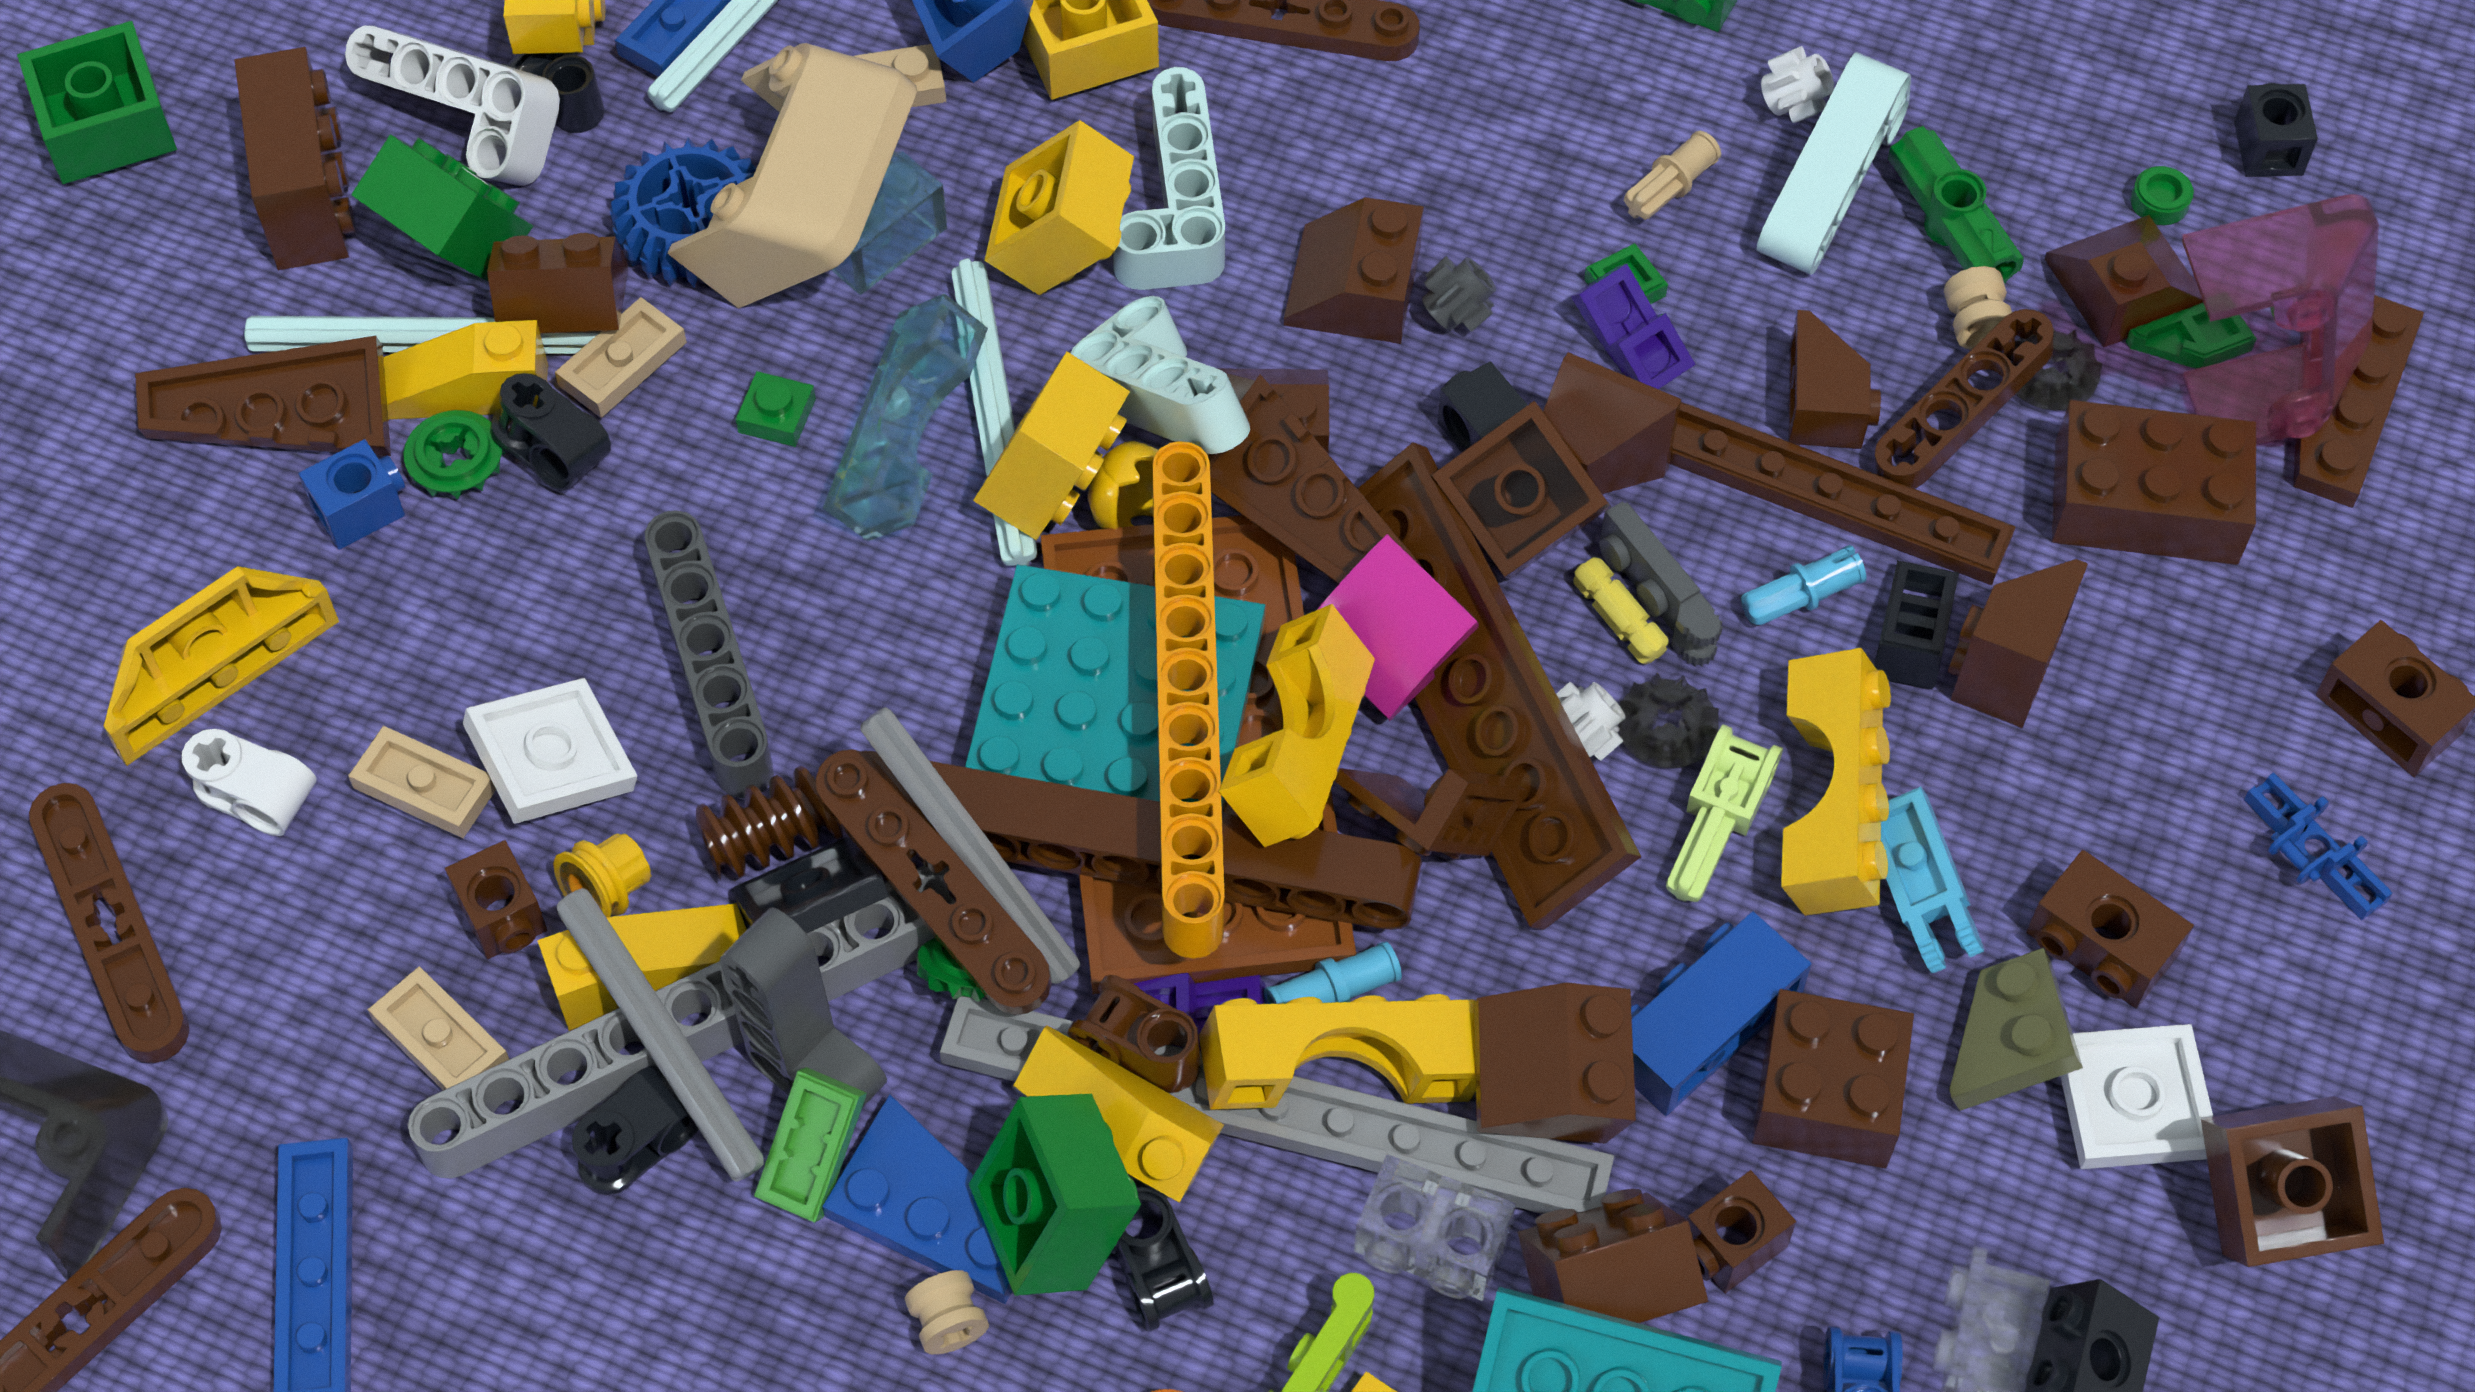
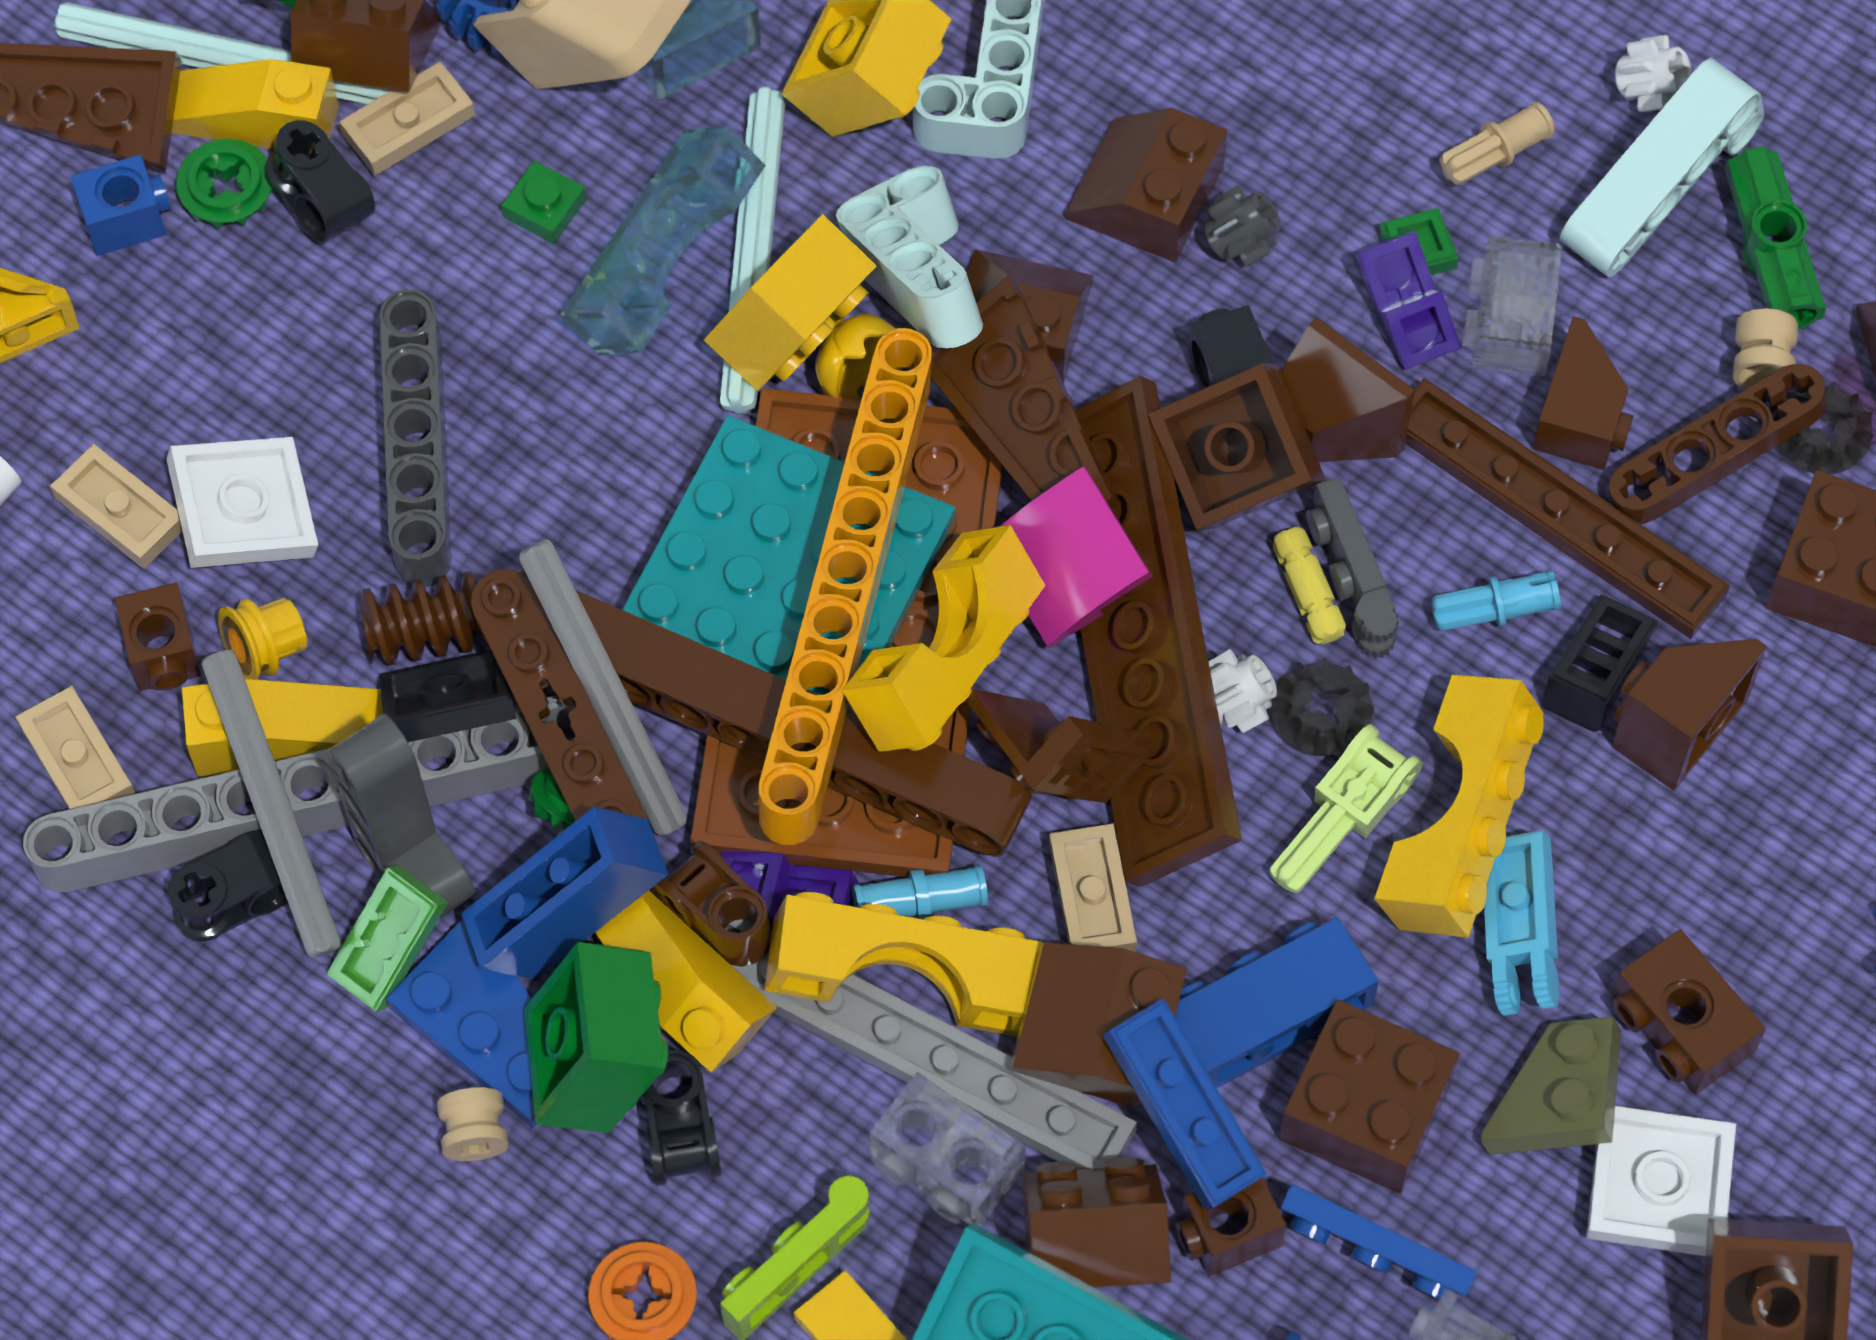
camera: 15 degrees right, 5 degrees up
(985, 1056) = (564, 893): none -> blue brick
(1499, 937) = (1092, 888): none -> tan plate
(1668, 1122) = (1184, 1104): none -> blue tile
(1735, 315) = (1514, 307): none -> clear brick
(1886, 1220) = (1376, 1244): none -> blue plate

